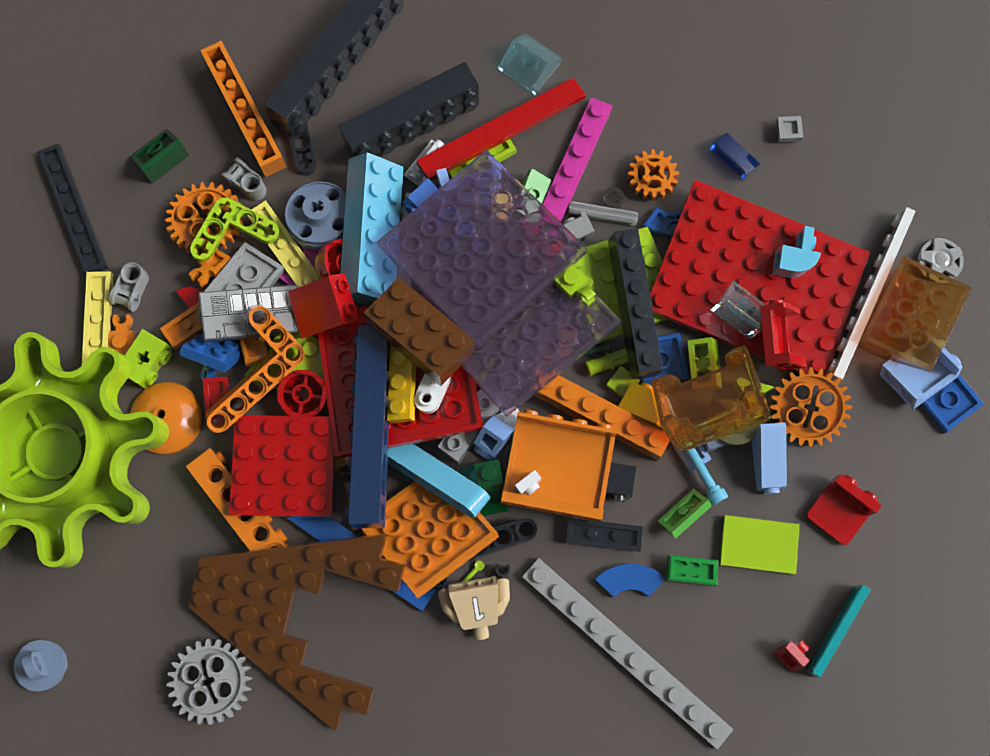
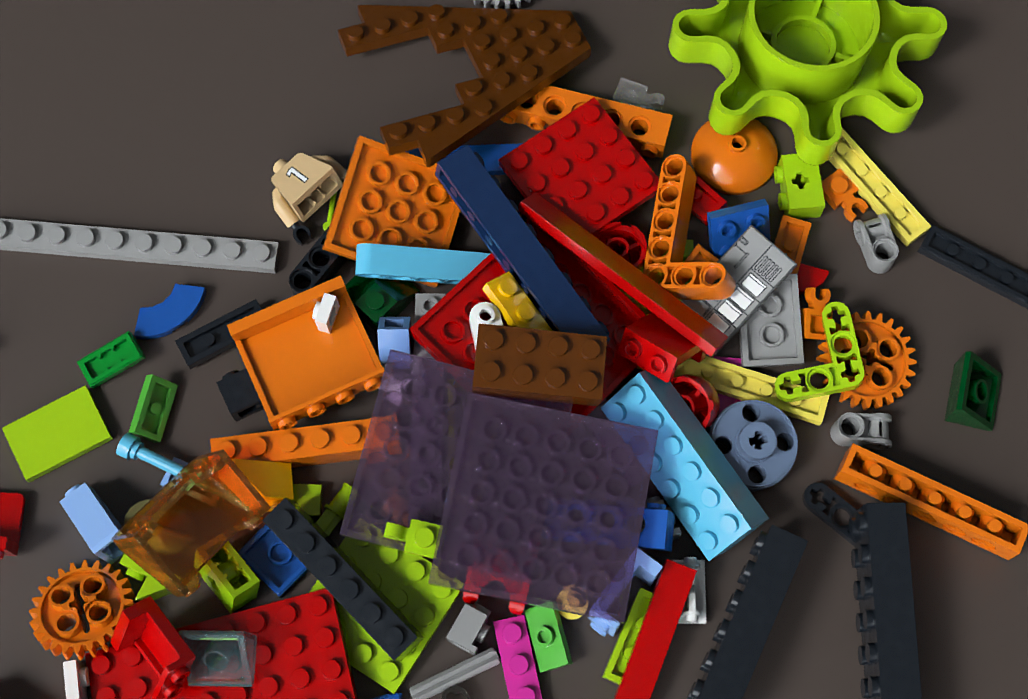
camera: 145 degrees right, 5 degrees down
(199, 506) = (635, 94): none -> clear plate
(315, 368) = (623, 274): none -> red tile

